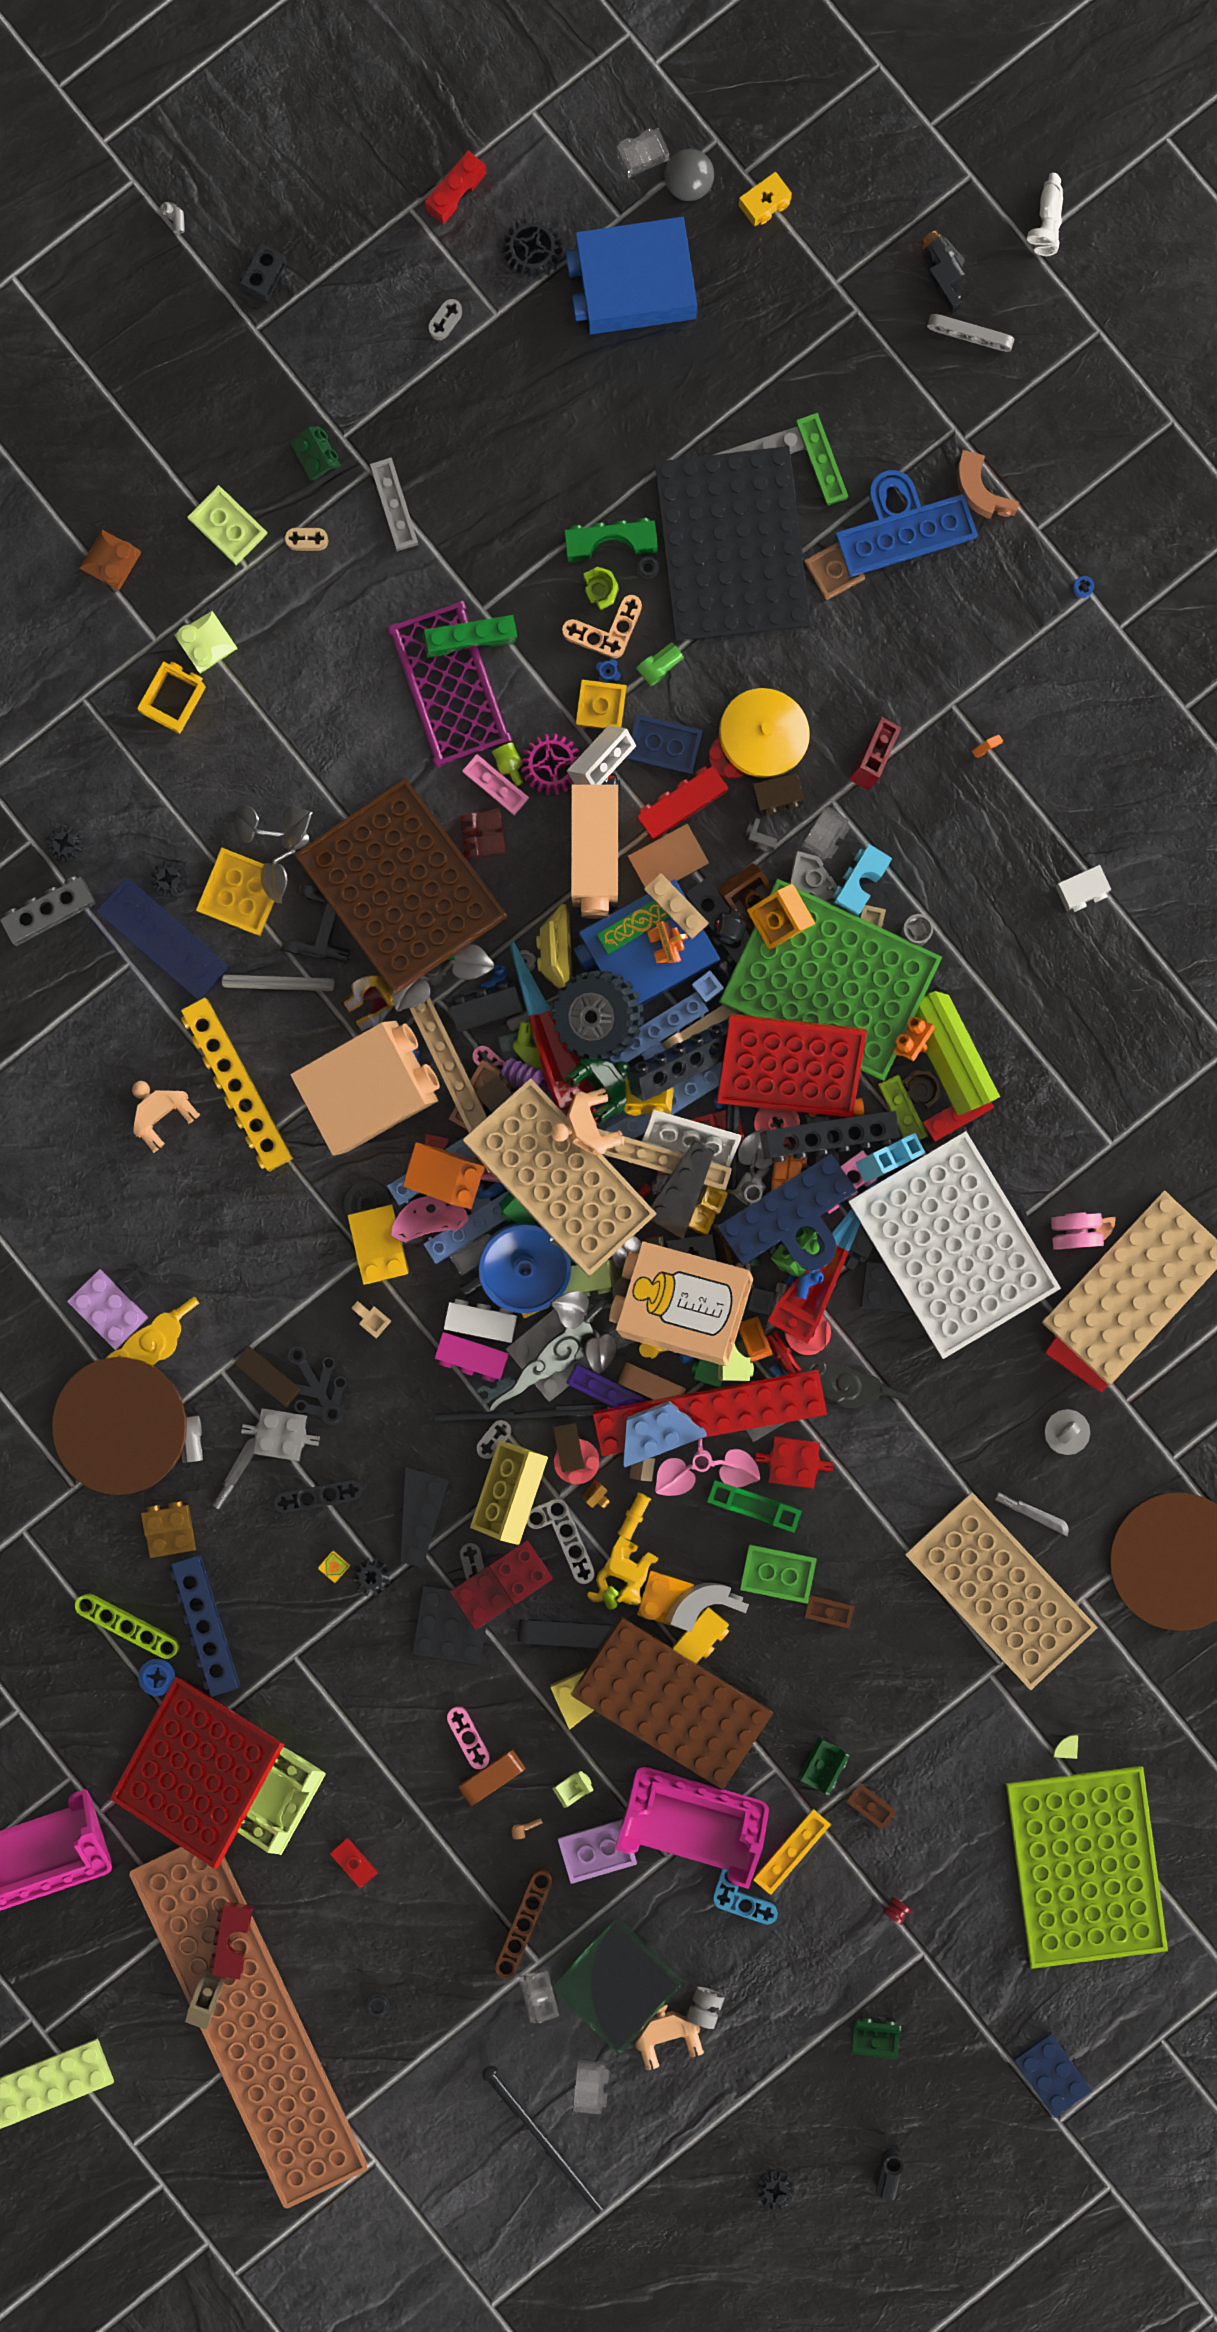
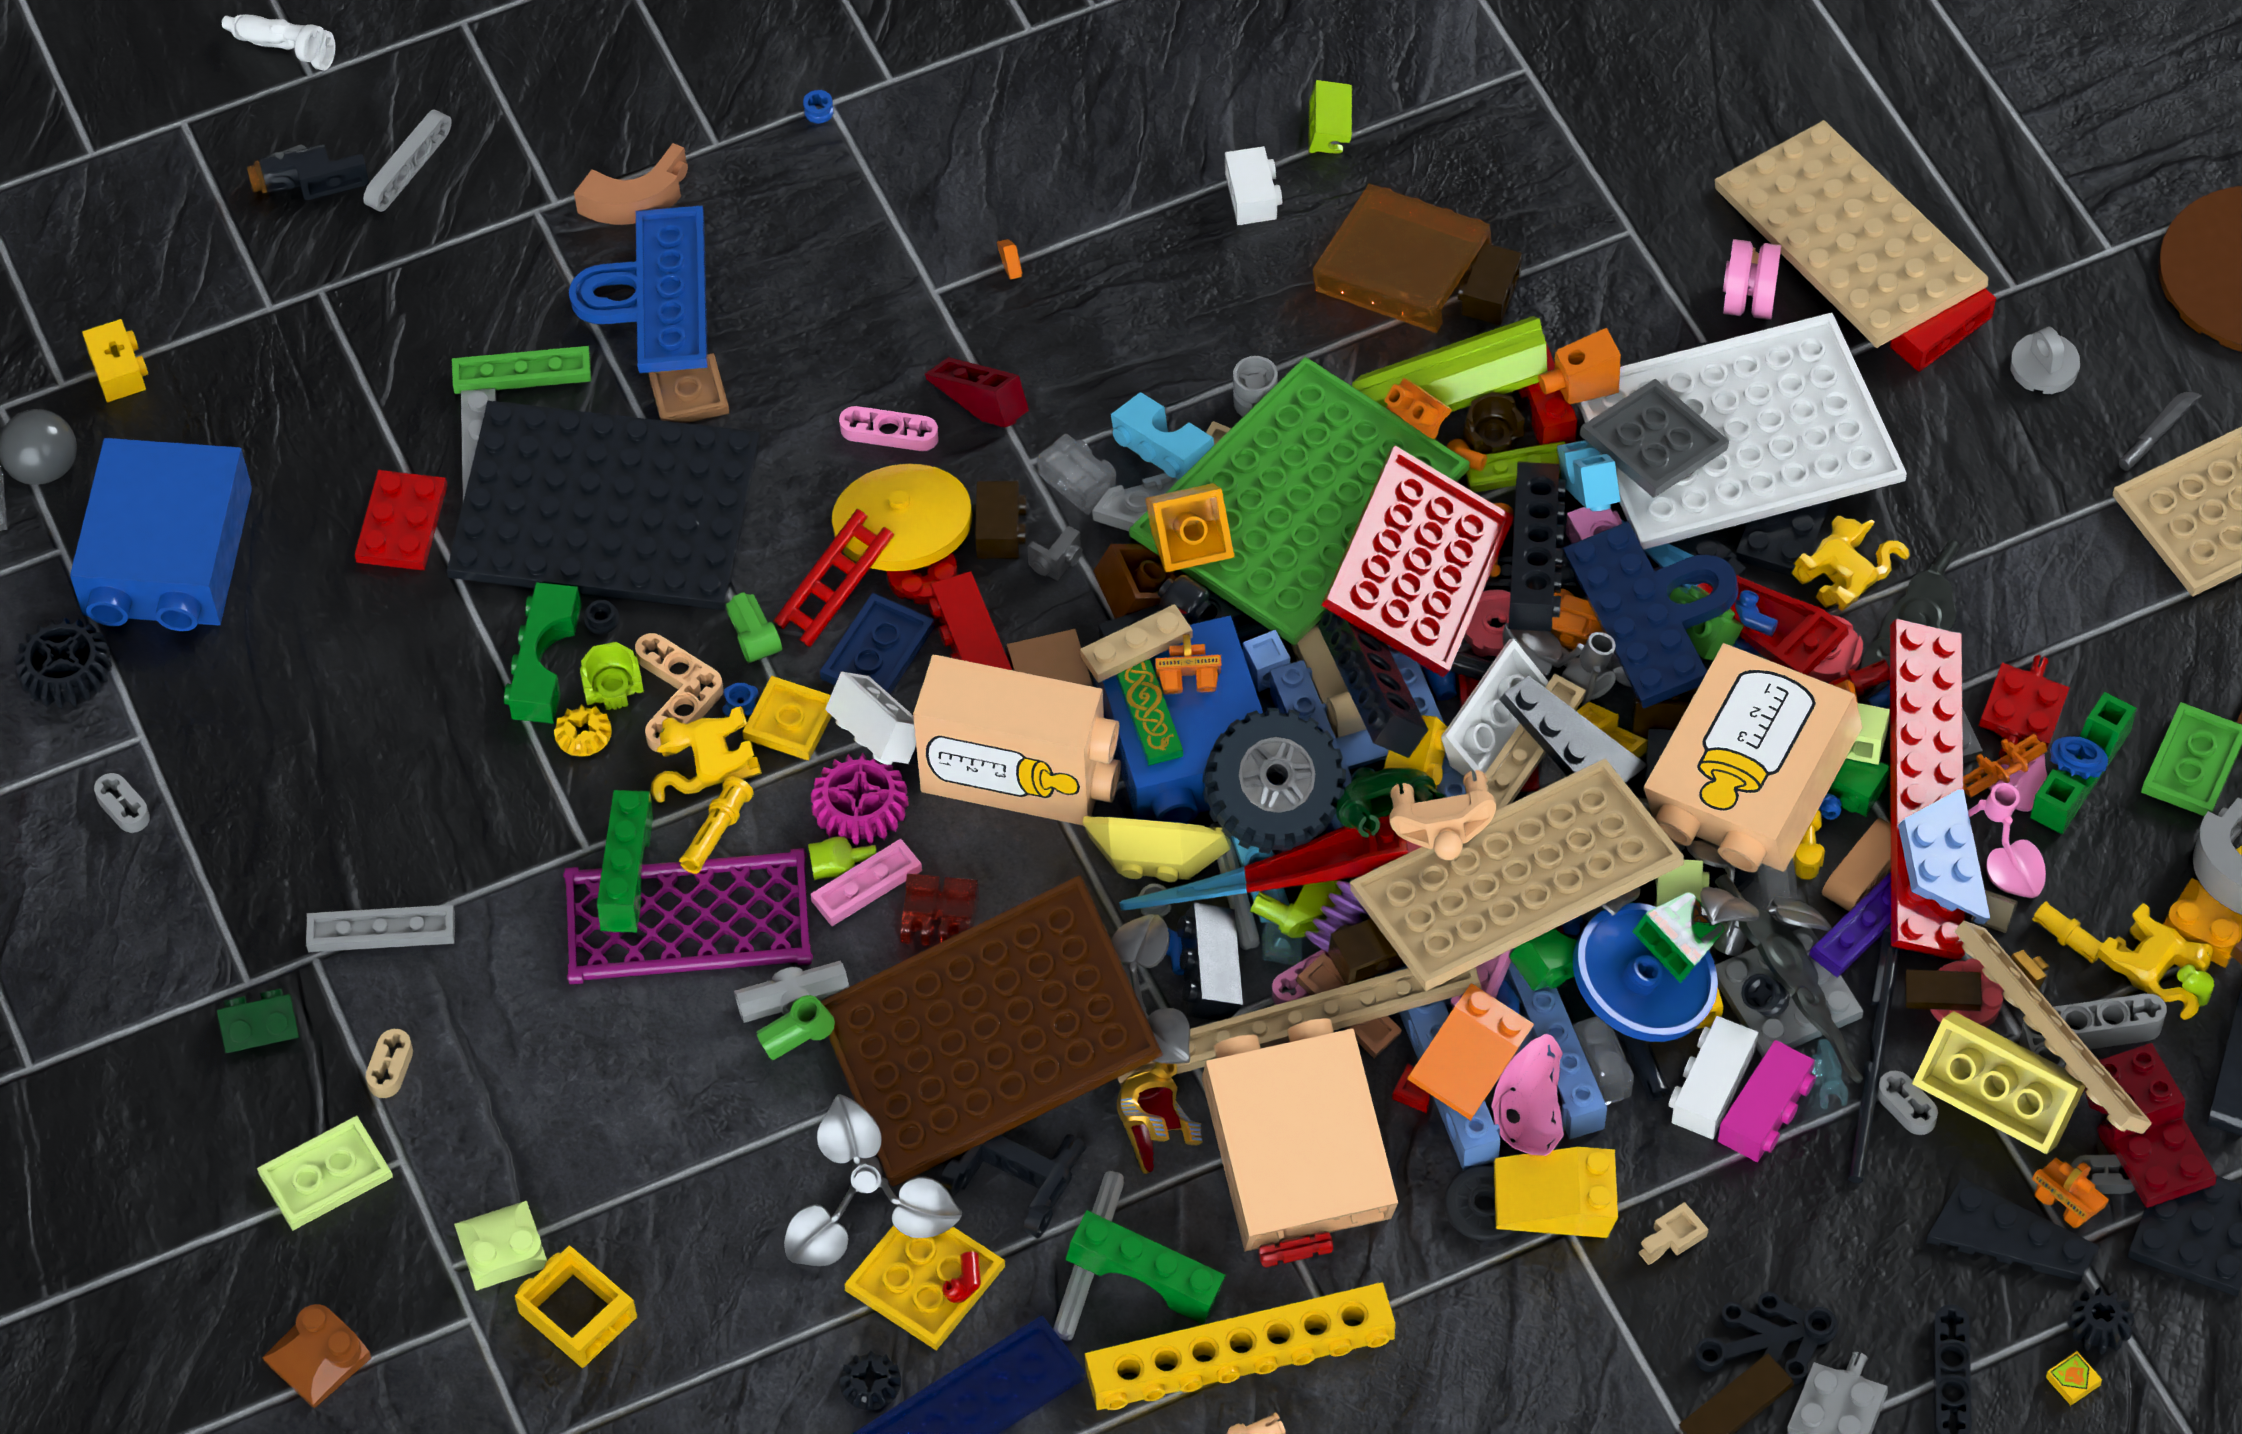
camera: 75 degrees left, 30 degrees down
(234, 917) = (967, 1282): none -> red arm
(268, 1018) = (1181, 1281): none -> green arch
(381, 771) = (796, 1028): none -> bright green piece
(409, 762) = (787, 987): none -> light grey piece
(451, 1545) = (2070, 1187): none -> orange hips
(521, 684) = (722, 813): none -> yellow pin
(532, 1341) = (1757, 992): none -> black wheel
(546, 1517) = (2059, 1036): none -> tan plate
(549, 1282) = (1678, 934): none -> green torso
(562, 663) = (710, 751): none -> yellow animal
(570, 590) = (586, 742): none -> yellow gear
(691, 420) = (401, 520): none -> red plate
(710, 715) = (833, 599): none -> red bar
(735, 1454) = (1996, 772): none -> orange piece
(756, 1511) = (2065, 753): none -> blue gear
(828, 689) = (897, 439): none -> bright pink beam
(868, 1333) = (1844, 565): none -> yellow animal
(897, 1073) = (1476, 459): none -> orange arm
(923, 1194) = (1654, 438): none -> dark grey plate
(963, 1147) = (1585, 369): none -> orange torso
(1040, 1062) = (1490, 283): none -> dark brown brick
(1046, 999) = (1399, 256): none -> clear orange panel
(1153, 926) = (1330, 116): none -> lime hinge

